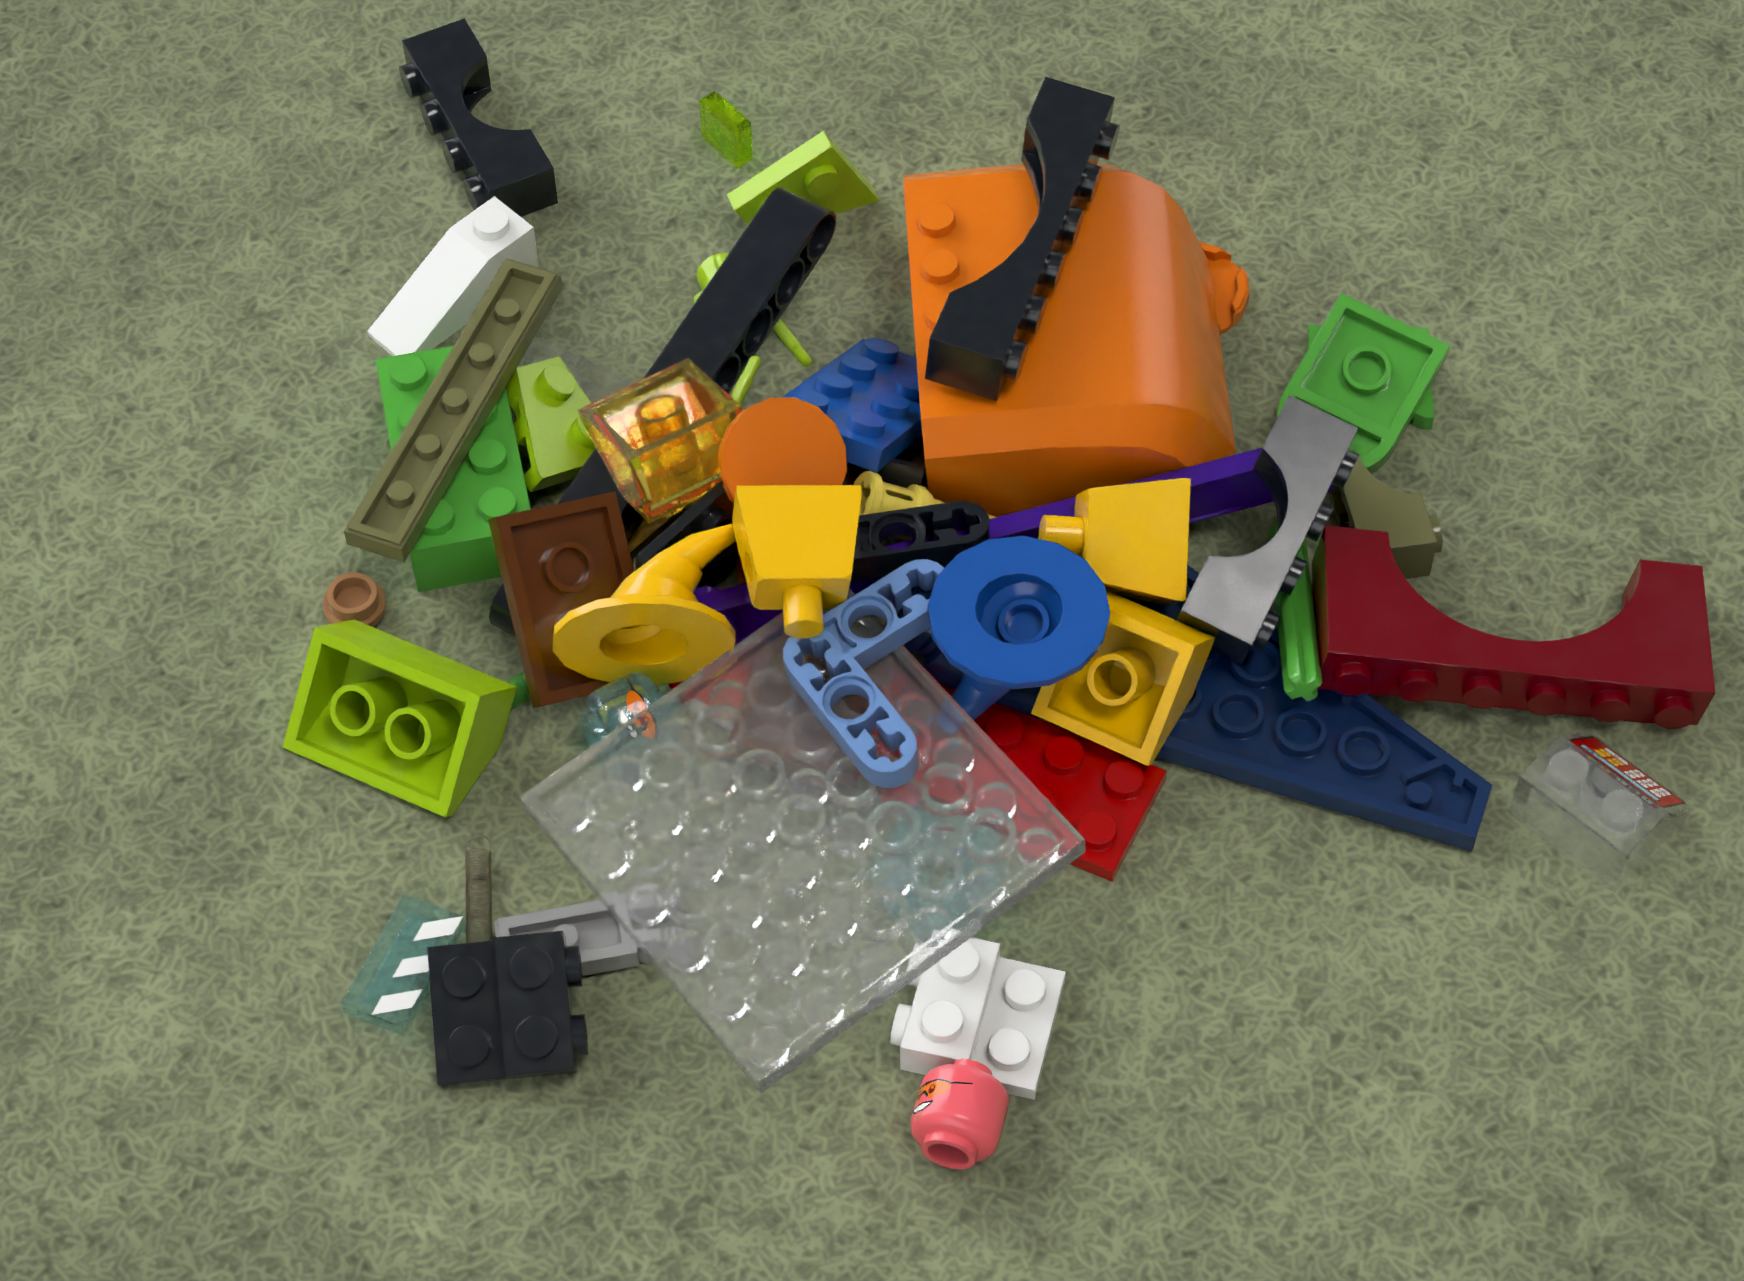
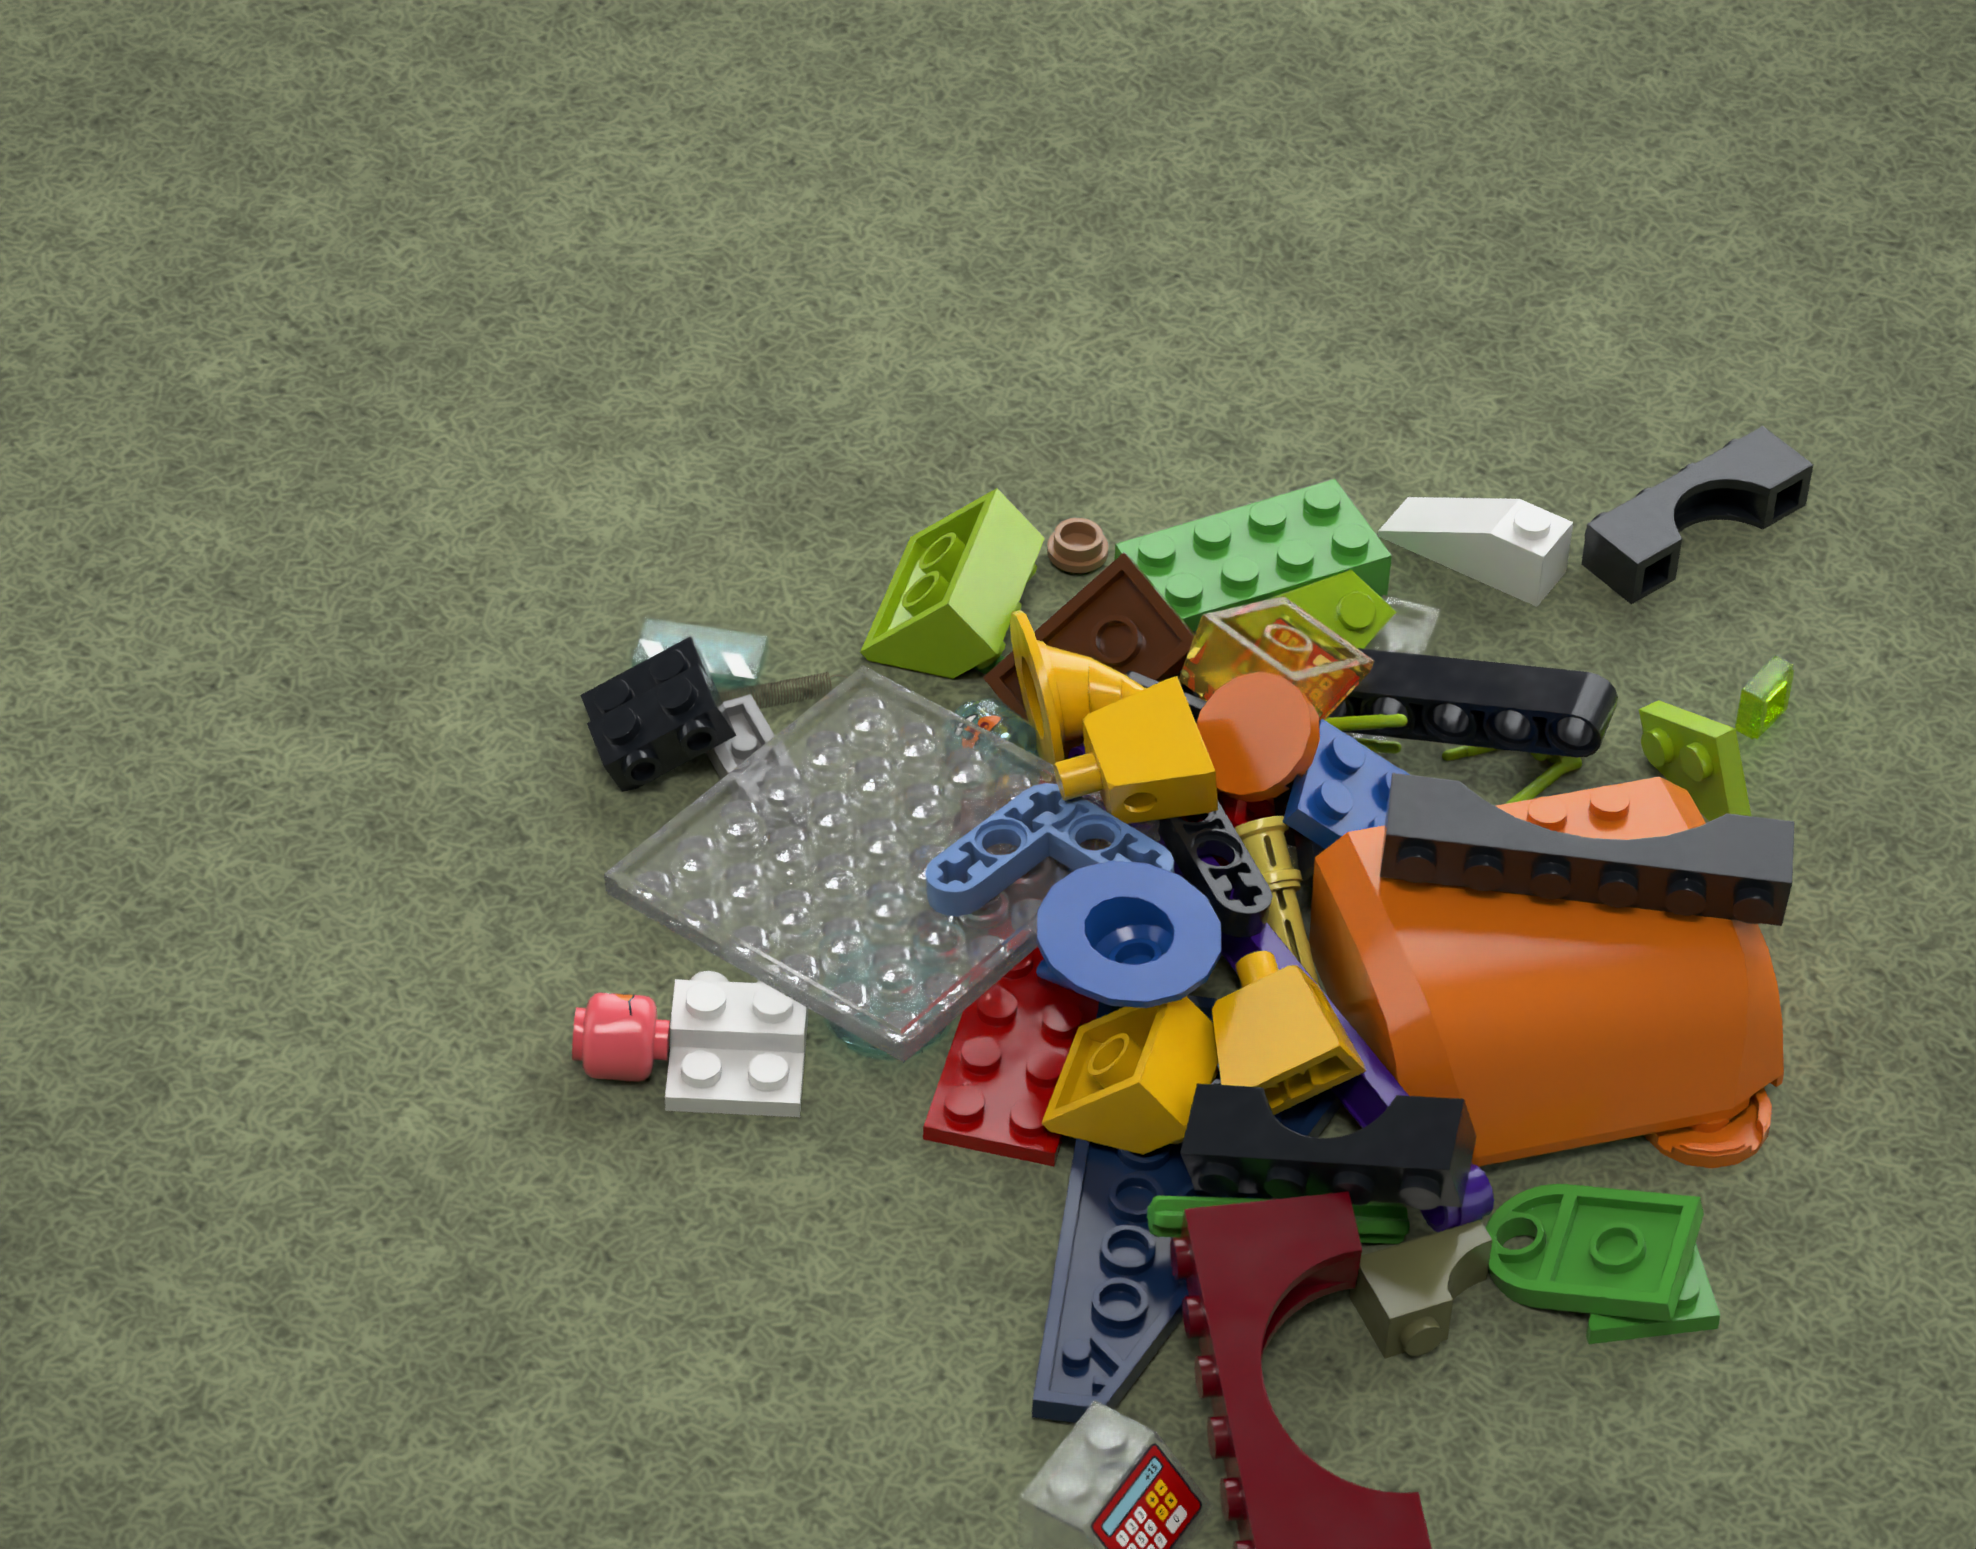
camera: 75 degrees right, 10 degrees down
(453, 411) = (1282, 531): olive tile -> none

